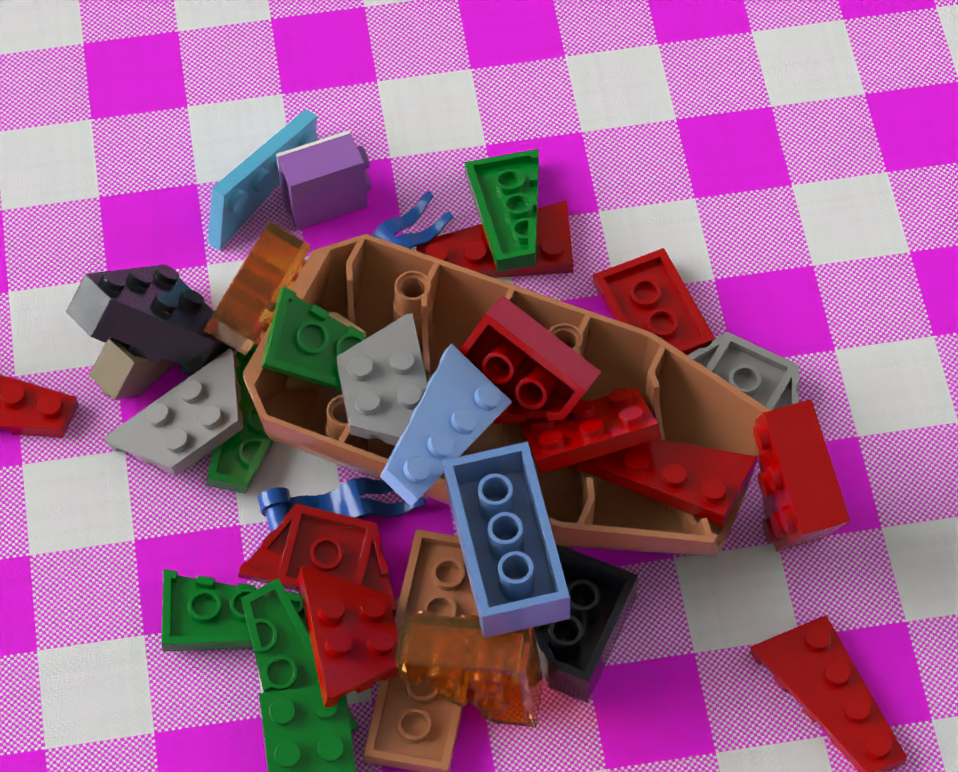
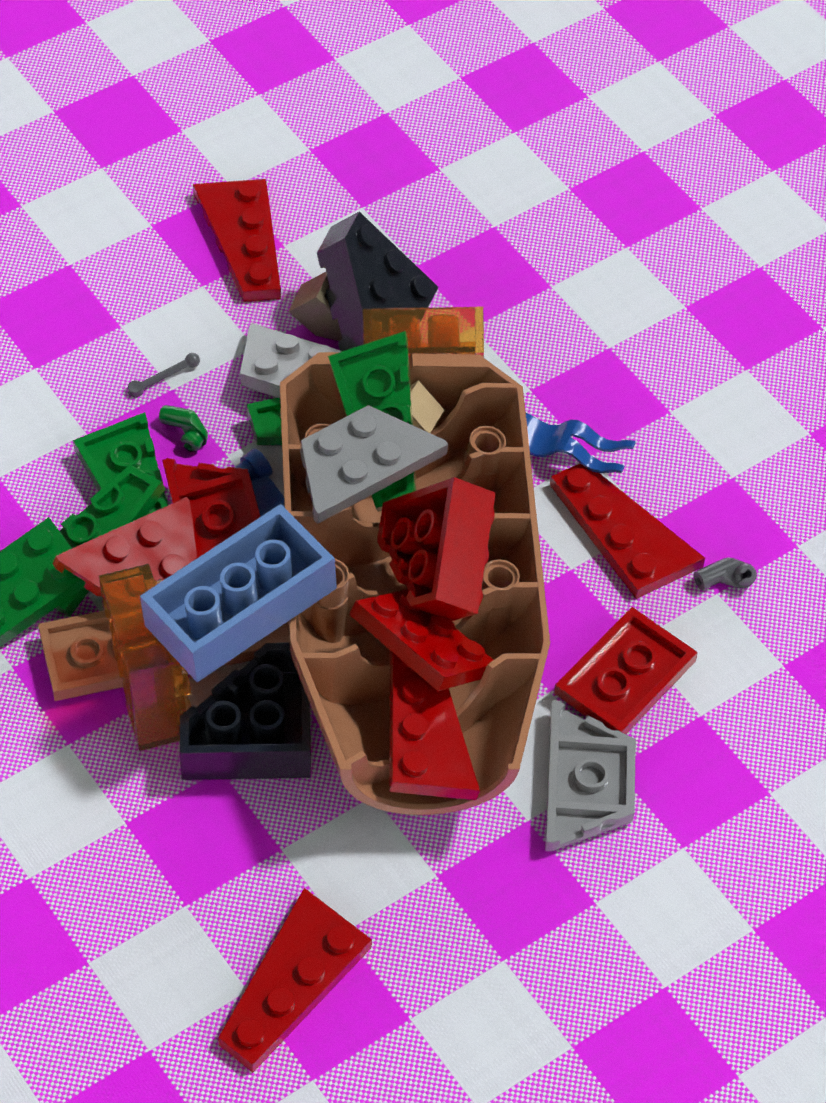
camera: 60 degrees right, 5 degrees down
(117, 568) = (136, 388): none -> dark grey hinge
(193, 538) = (189, 422): none -> green arm
(254, 180) = (566, 314): medium azure wing -> none
(323, 179) = (594, 359): medium lavender piece -> none
(443, 425) = (340, 506): light blue wing -> none
(507, 205) = (661, 508): green wing -> none
(587, 191) = (726, 571): none -> dark grey arm
(796, 477) = (468, 827): red brick -> none

